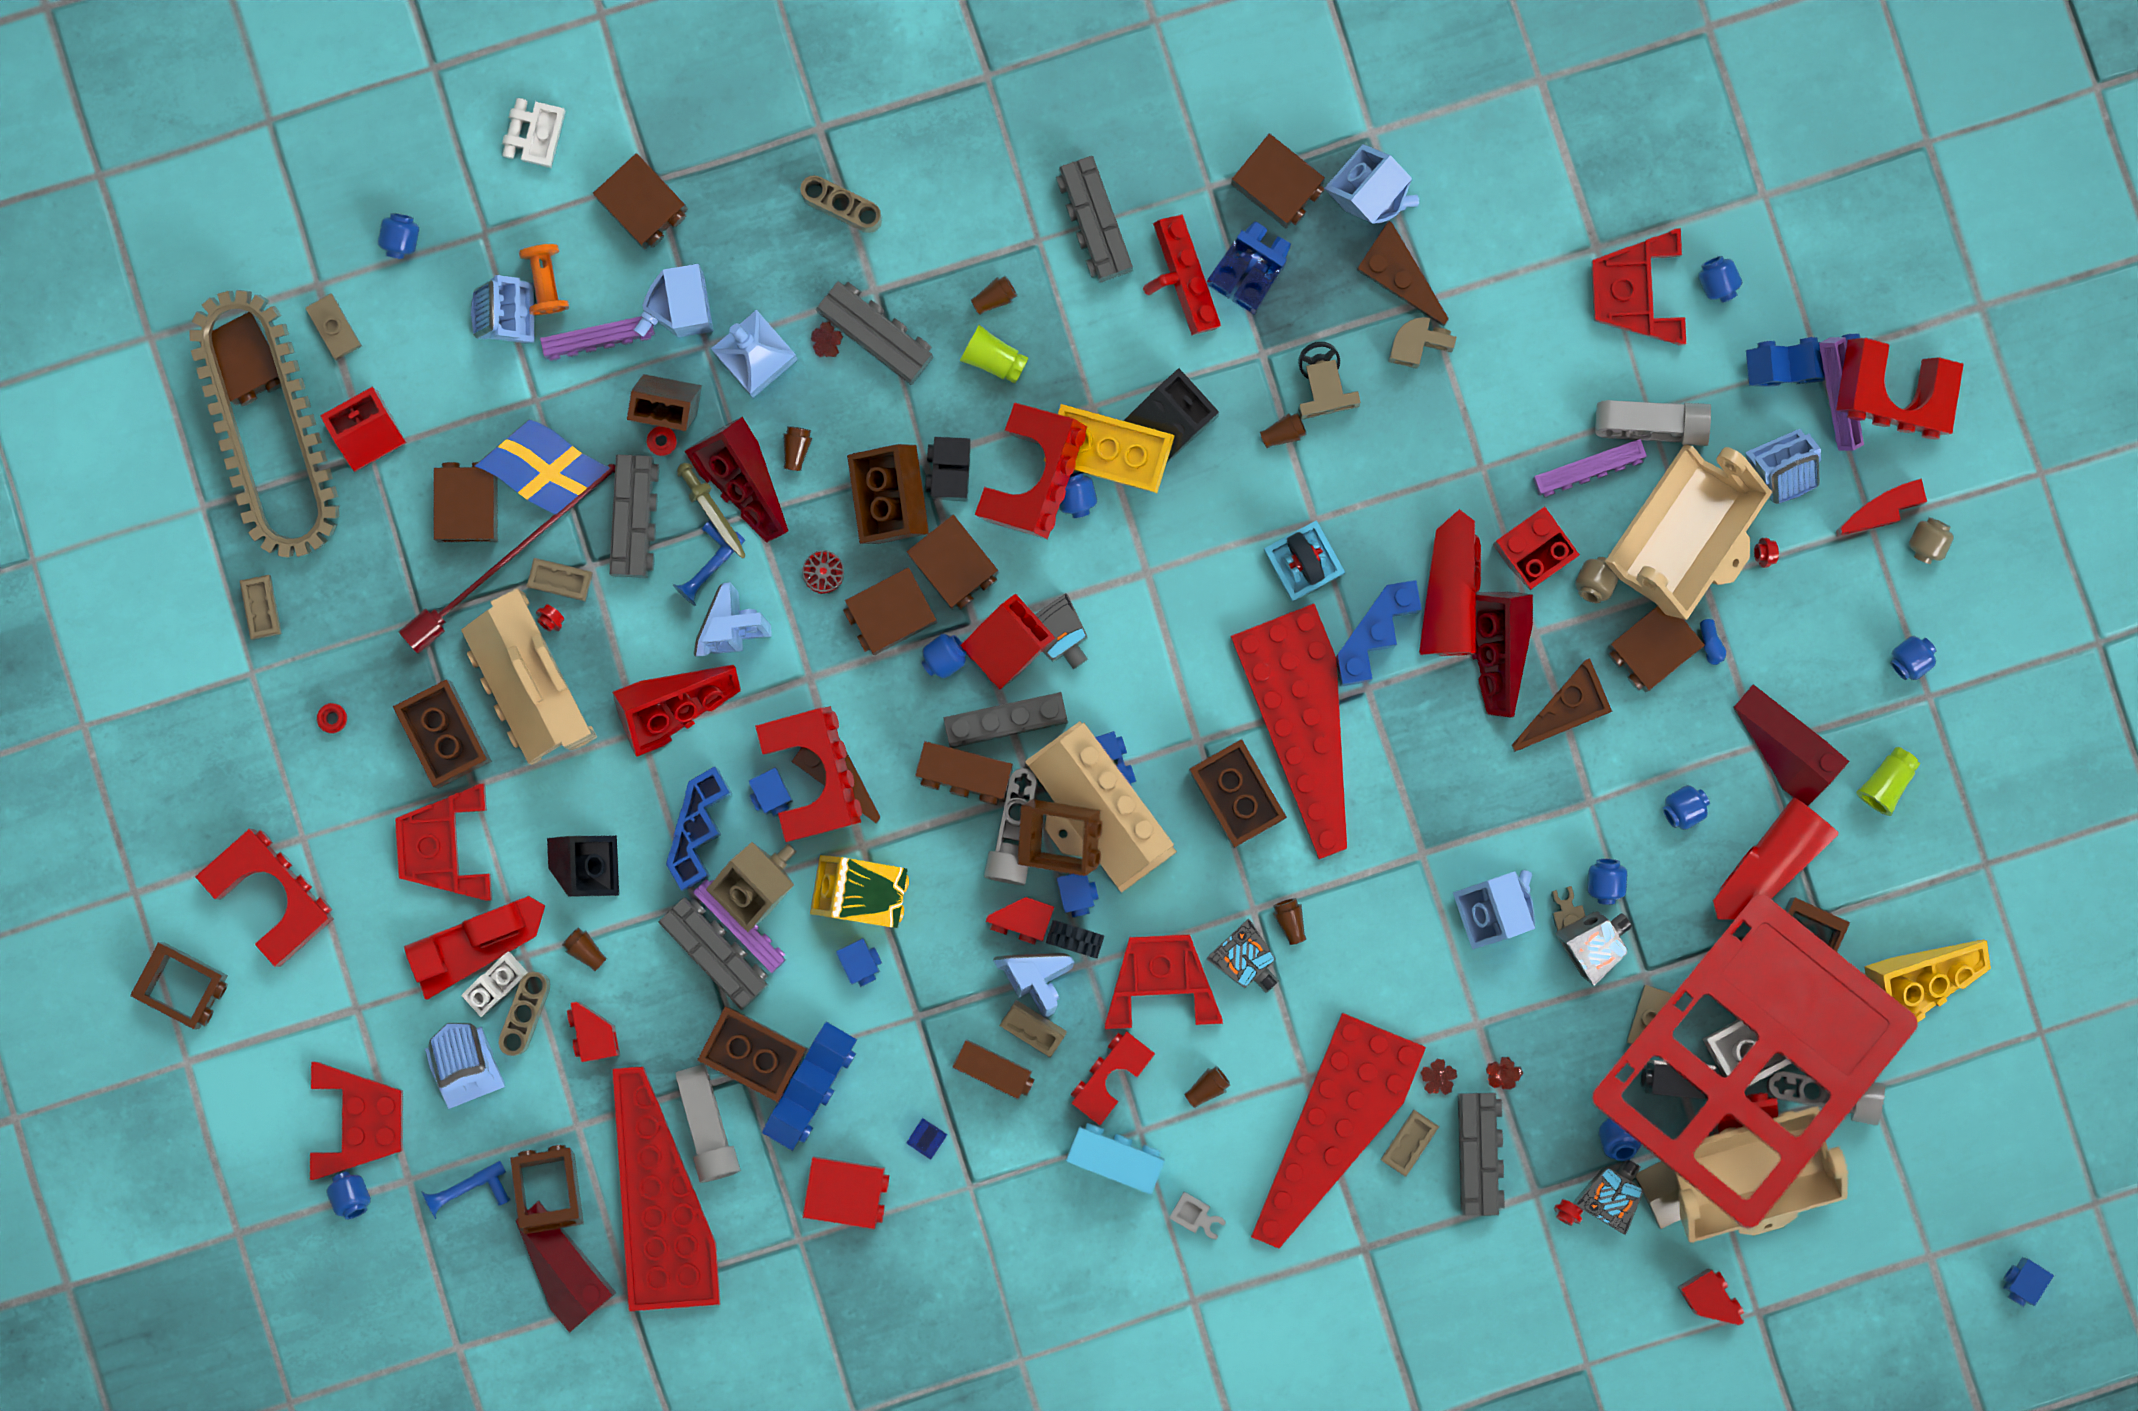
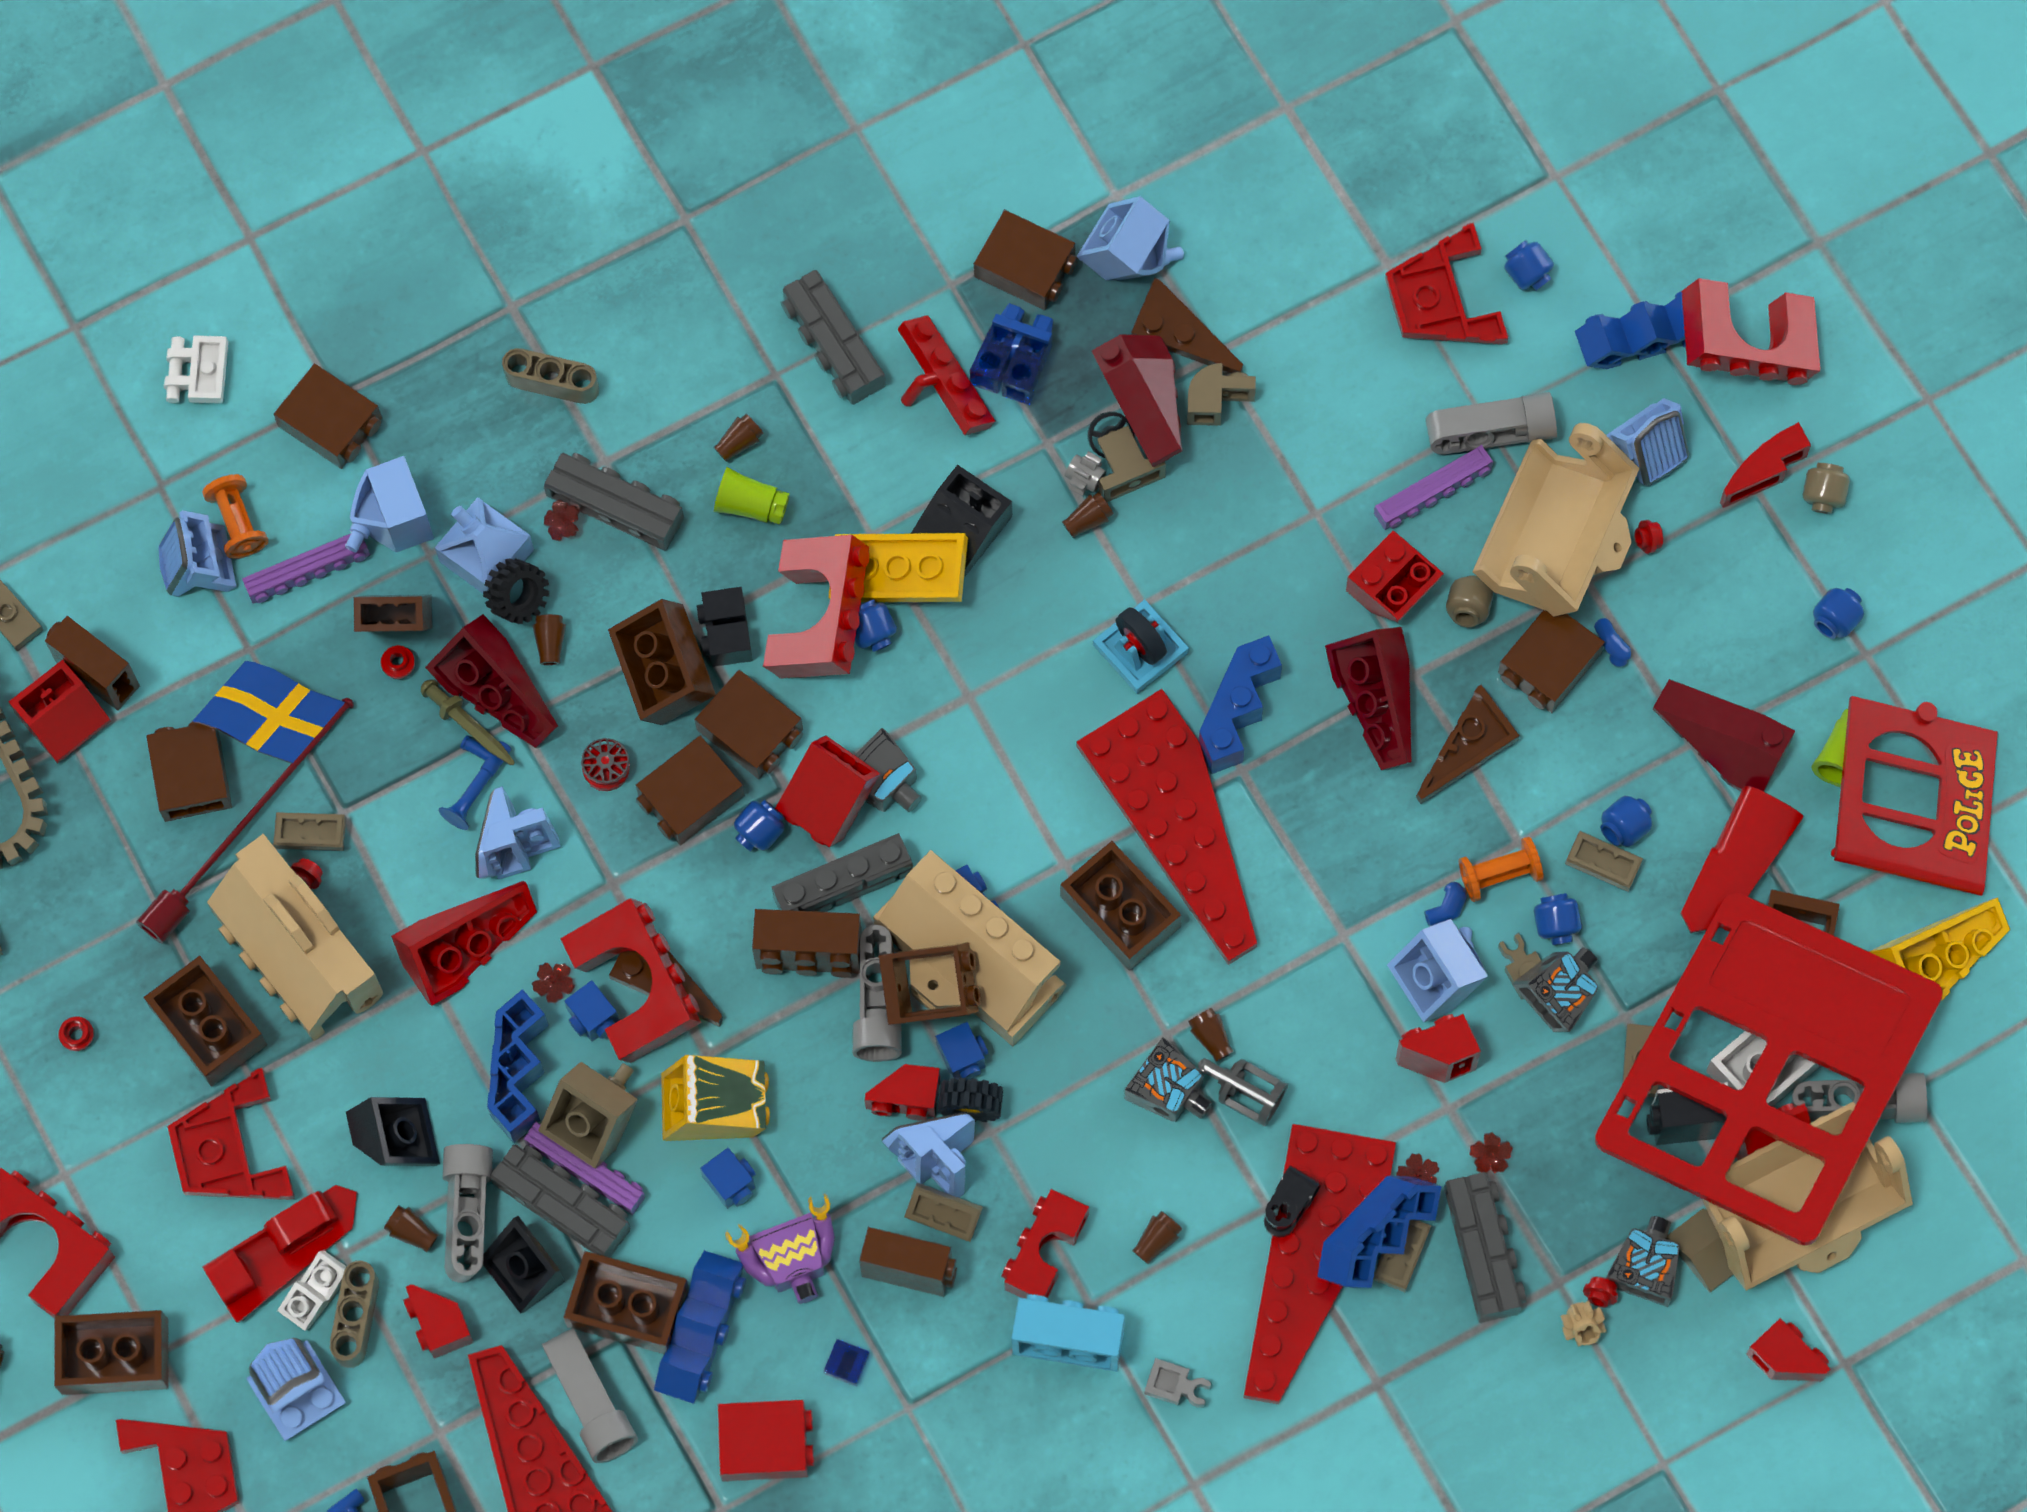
camera: 15 degrees left, 15 degrees down
(316, 1006) = (111, 1352): none -> reddish brown brick
(397, 391) = (92, 662): none -> reddish brown brick
(398, 235) = (64, 503): blue head -> none
(632, 516) = (379, 746): dark grey brick -> none
(640, 912) = (467, 1172): none -> light grey beam
(671, 1001) = (521, 1266): none -> black slope
(743, 756) = (553, 982): none -> clear red plant
(765, 393) = (502, 584): none -> black tyre
(897, 1037) = (789, 1252): none -> medium lavender torso
(1161, 968) = (1075, 1116): red wing -> none
(1289, 393) = (1085, 473): none -> light grey gear
(1301, 969) = (1233, 1081): none -> dark grey piece
(1328, 1081) = (1292, 1198): none -> black piece
(1356, 323) = (1145, 388): none -> dark red wedge
(1392, 1126) = (1376, 1227): none -> blue brick
(1452, 589) = (1311, 643): red panel -> none
(1483, 981) = (1441, 1050): none -> red slope
(1519, 850) = (1451, 906): none -> blue arm
(1547, 1237) = (1583, 1323): none -> tan gear
(1569, 828) = (1501, 869): none -> orange hose
(1617, 1142) = (1639, 1194): blue head -> none
(1658, 837) = (1604, 861): none -> dark tan plate
(1847, 431) = (1701, 384): medium lavender piece -> none
(1987, 825) = (1966, 768): none -> red door

